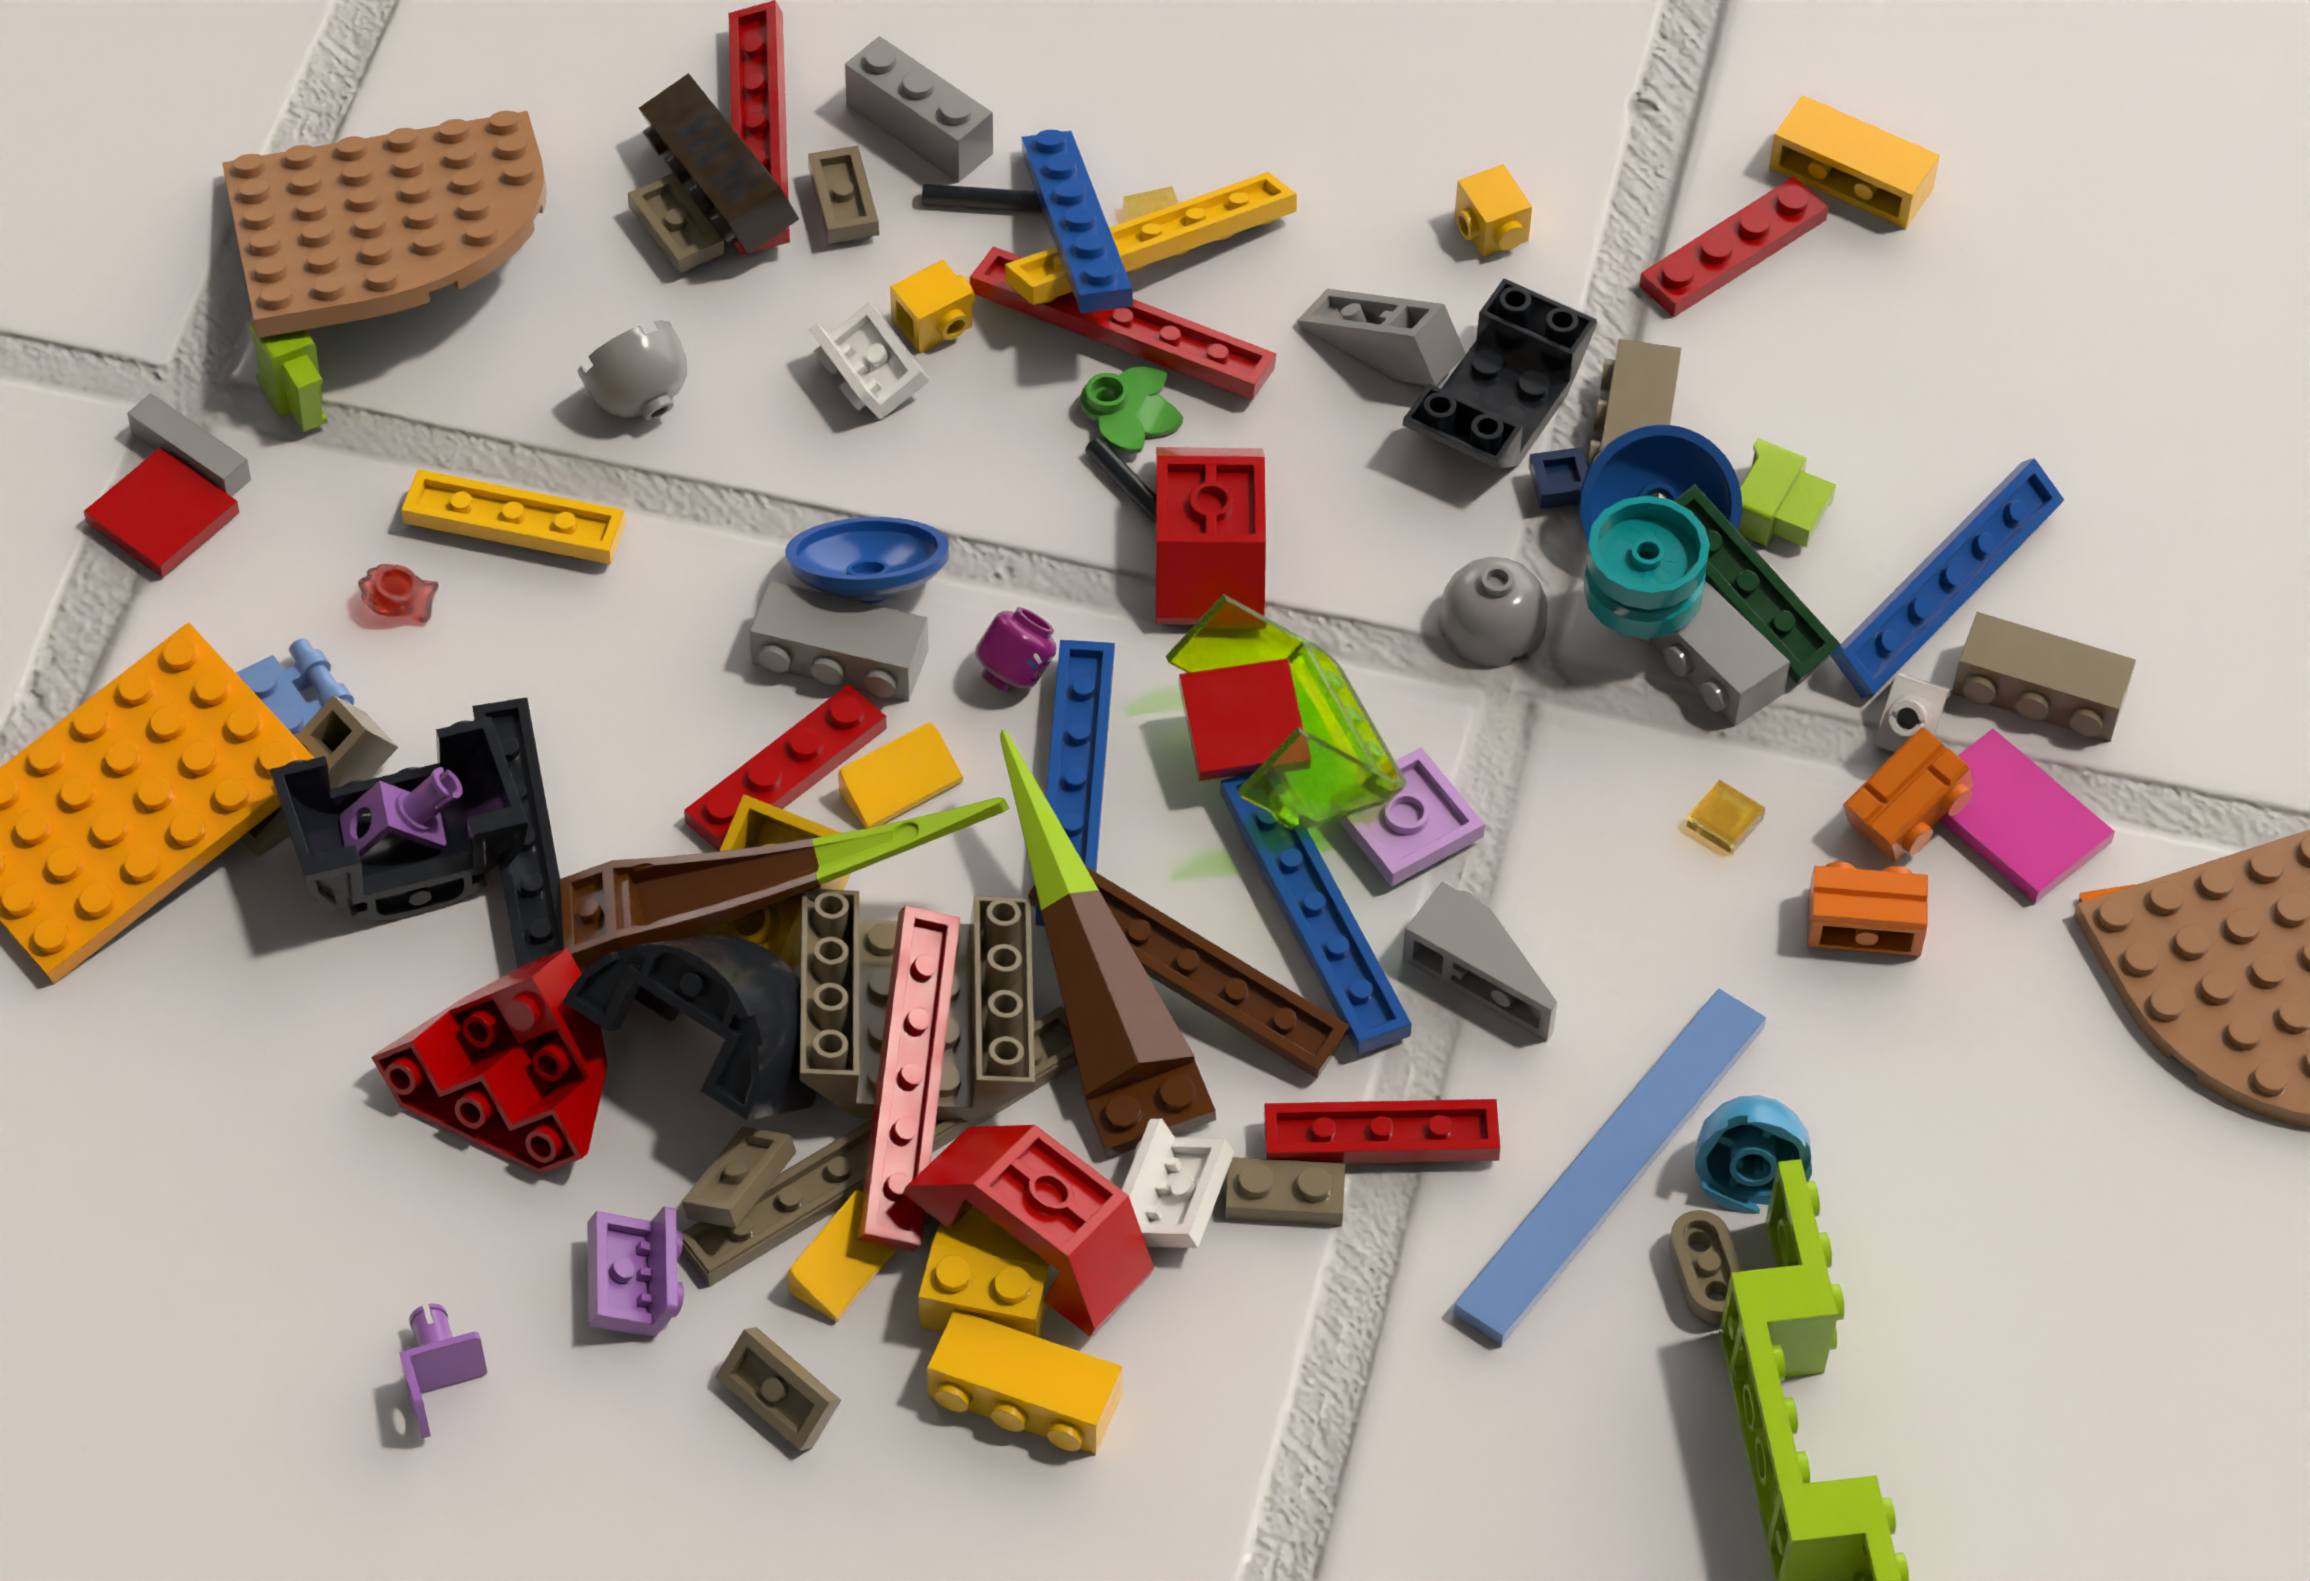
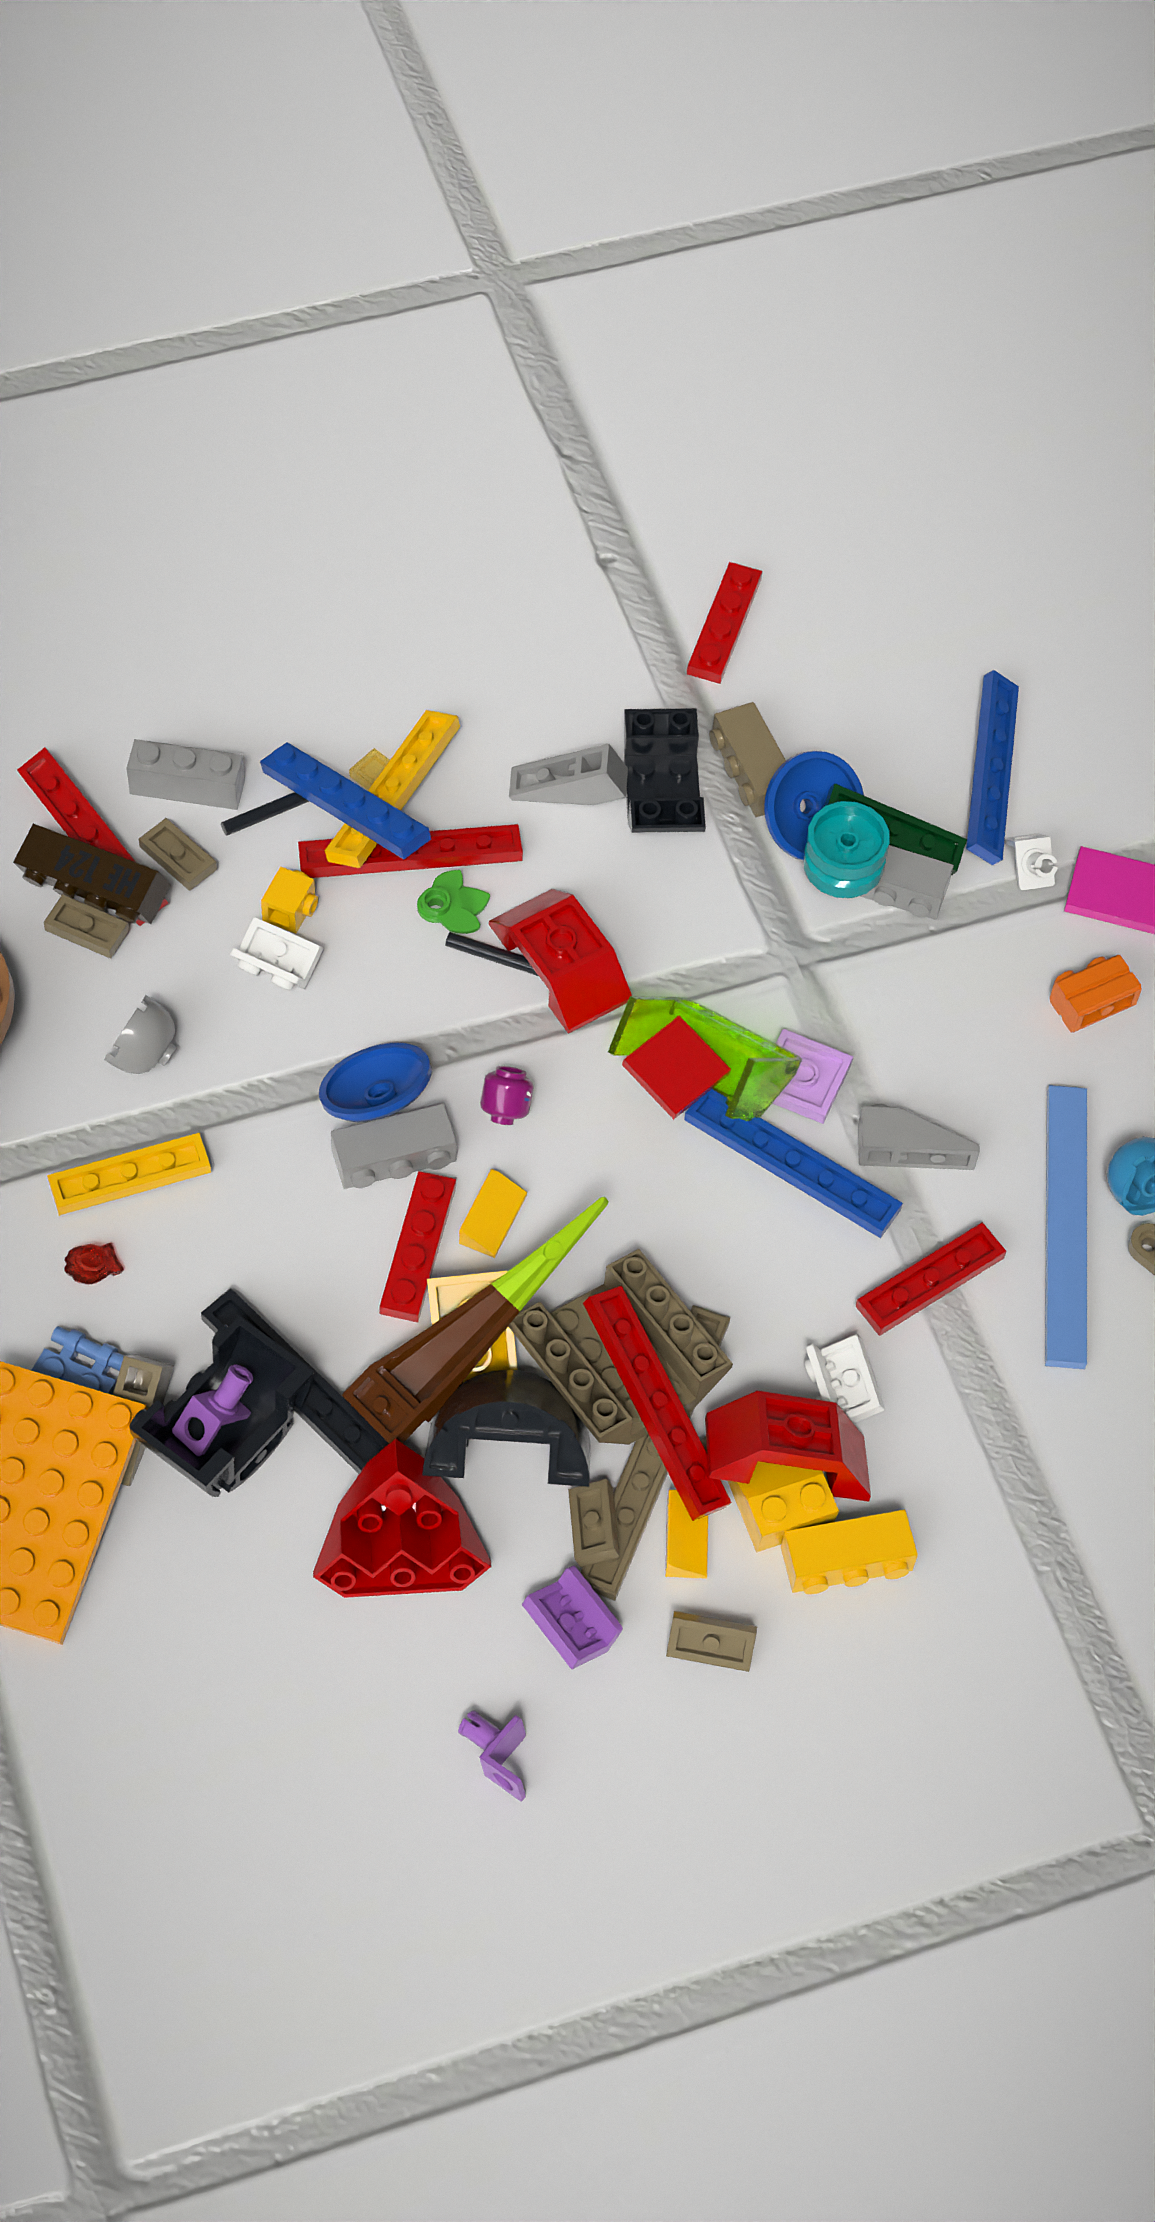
camera: 35 degrees left, 5 degrees up
(1080, 744) = (600, 1160): blue plate -> none
(1121, 1032) = (751, 1305): reddish brown plate -> none
(1223, 982) = (752, 1237): reddish brown plate -> none
(1285, 1191) = (903, 1345): dark tan plate -> none
(1492, 211) = (577, 669): yellow brick -> none
(1493, 612) = (758, 922): light grey cylinder -> none
(1558, 476) = (736, 817): dark blue plate -> none
(1725, 817) = (974, 978): clear yellow tile -> none
(1782, 497) = (872, 762): lime piece -> none
(1854, 161) = (758, 535): yellow brick -> none
(1910, 796) = (1072, 911): orange brick -> none
(2043, 676) = (1086, 800): dark tan brick -> none

